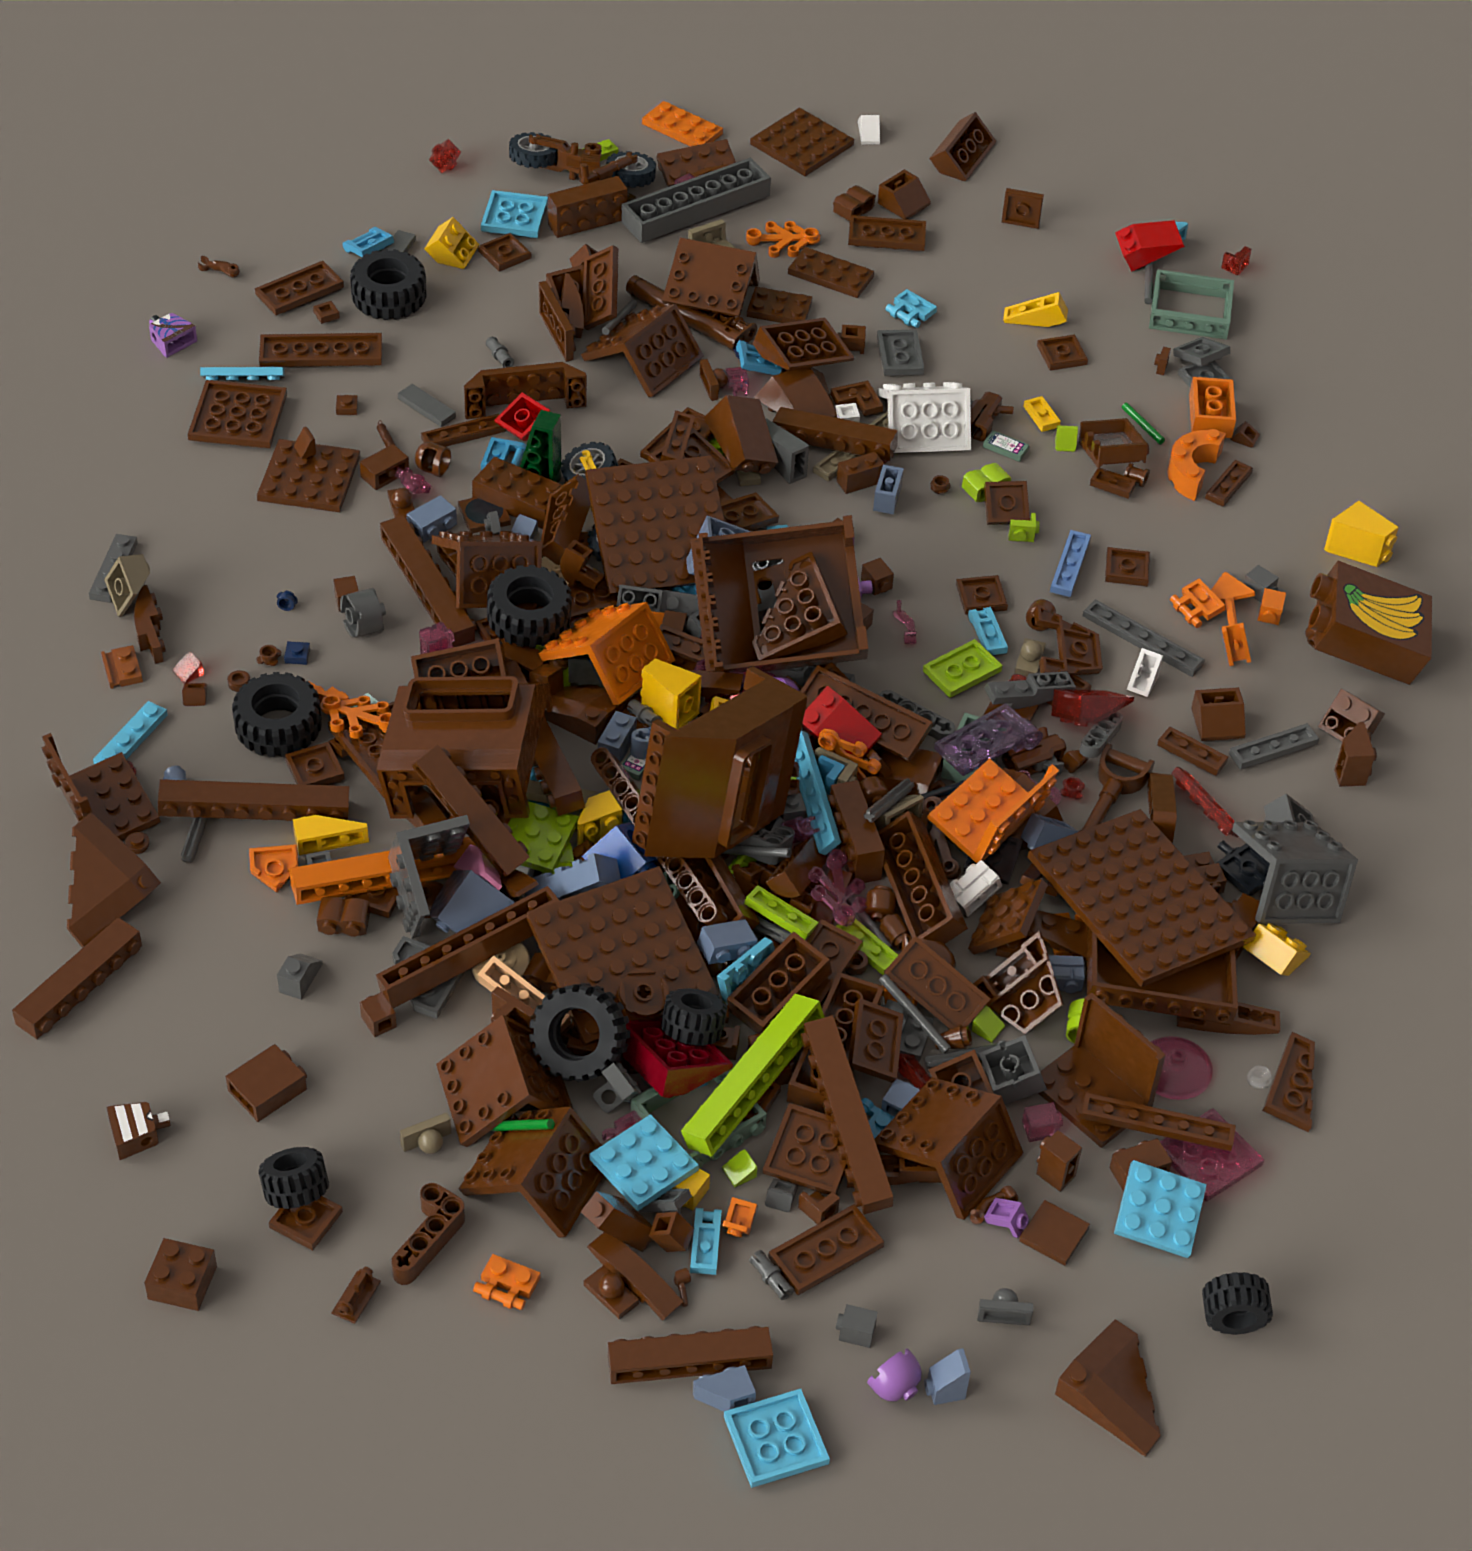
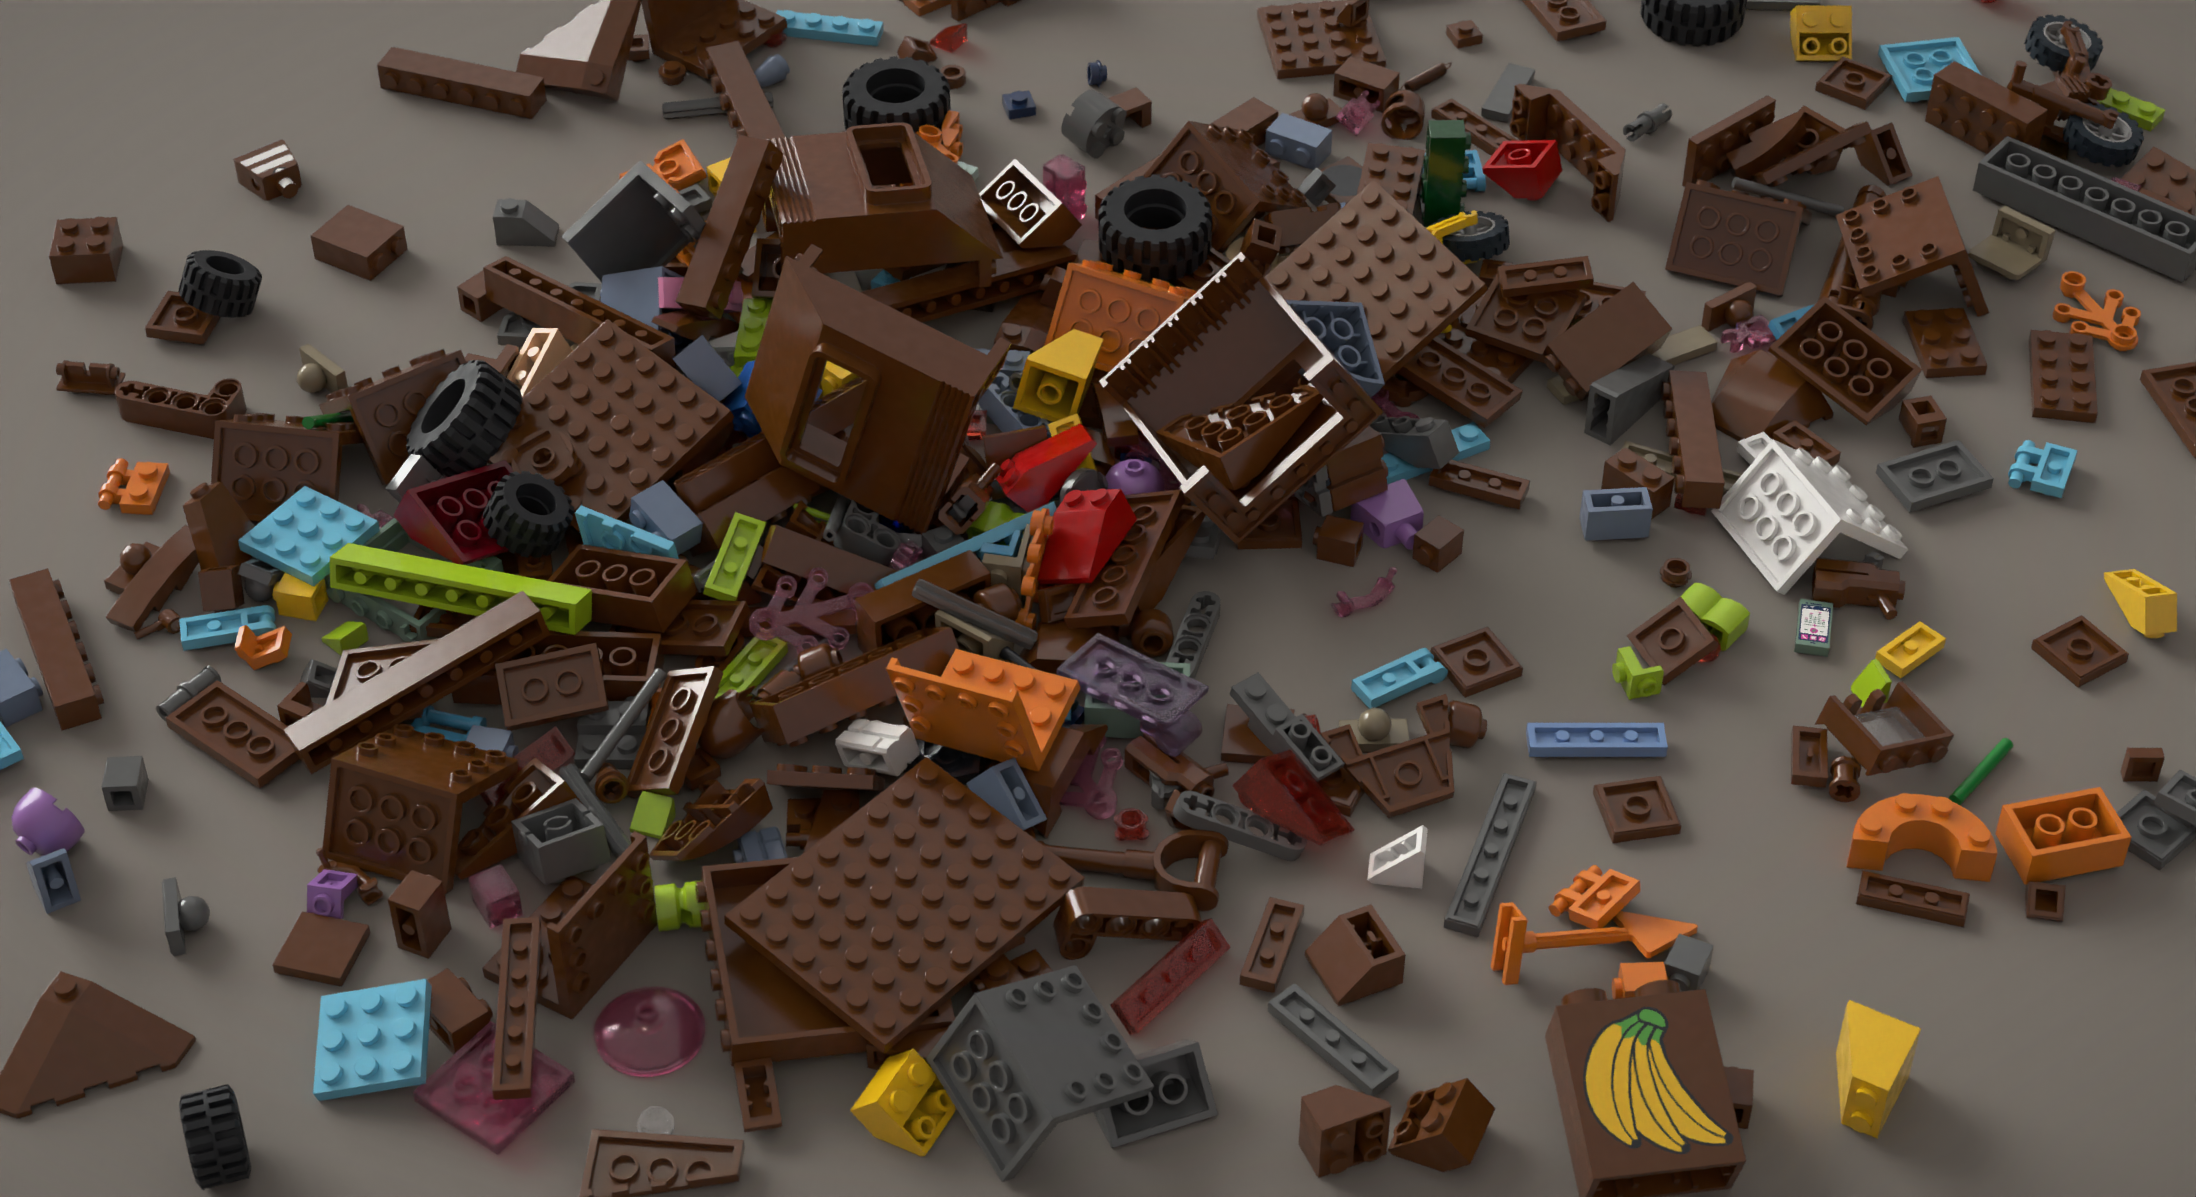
camera: 75 degrees right, 5 degrees down
(269, 655) = (1000, 84): reddish brown plate -> none
(962, 668) = (1306, 665): lime plate -> none

